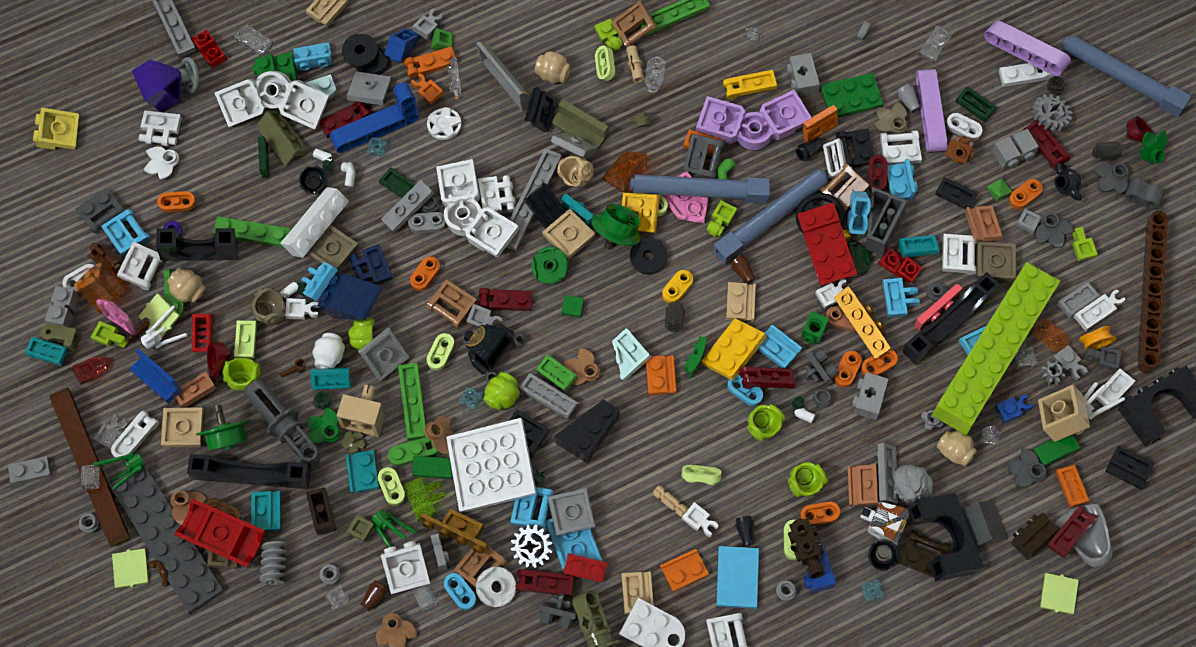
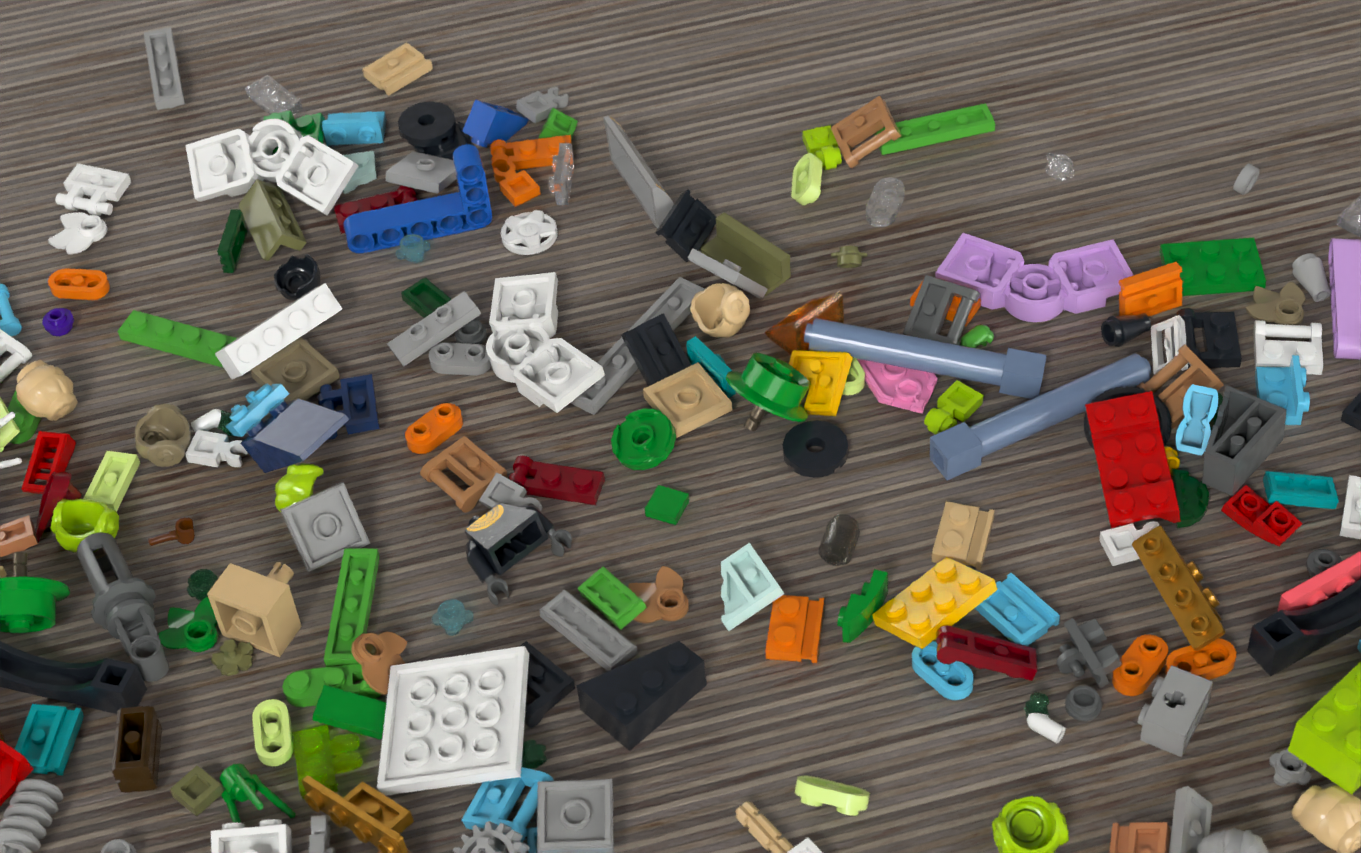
camera: 15 degrees right, 20 degrees down
(162, 83) = (112, 127): dark purple piece -> none
(173, 247) = (44, 336): black arch -> none
(209, 49) = (204, 103): red slope -> none
(327, 159) = (329, 255): arm -> none
(328, 351) = (235, 512): white hair -> none
(330, 378) = (218, 552): teal plate -> none
(350, 173) = (358, 273): white arm -> none
(362, 472) = (231, 704): teal plate -> none
(439, 352) = (419, 544): yellowish green plate -> none
(490, 193) = (574, 328): white plate -> none
(501, 391) = (507, 611): lime hair -> none
(552, 67) = (720, 175): tan hair -> none
(635, 64) = (856, 187): tan pin -> none
(677, 285) = (860, 495): yellow plate -> none
(742, 268) = (975, 484): reddish brown cone -> none
(750, 84) = (1041, 231): yellow plate -> none
(765, 421) = (968, 722): lime hair -> none
(799, 66) = (1133, 226): light grey brick -> none
(818, 321) = (1089, 589): green brick -> none
(840, 322) = (1138, 587): nougat plate -> none
(878, 174) = (1242, 377): dark red plate -> none
(895, 297) = (1246, 563): medium azure hinge -> none

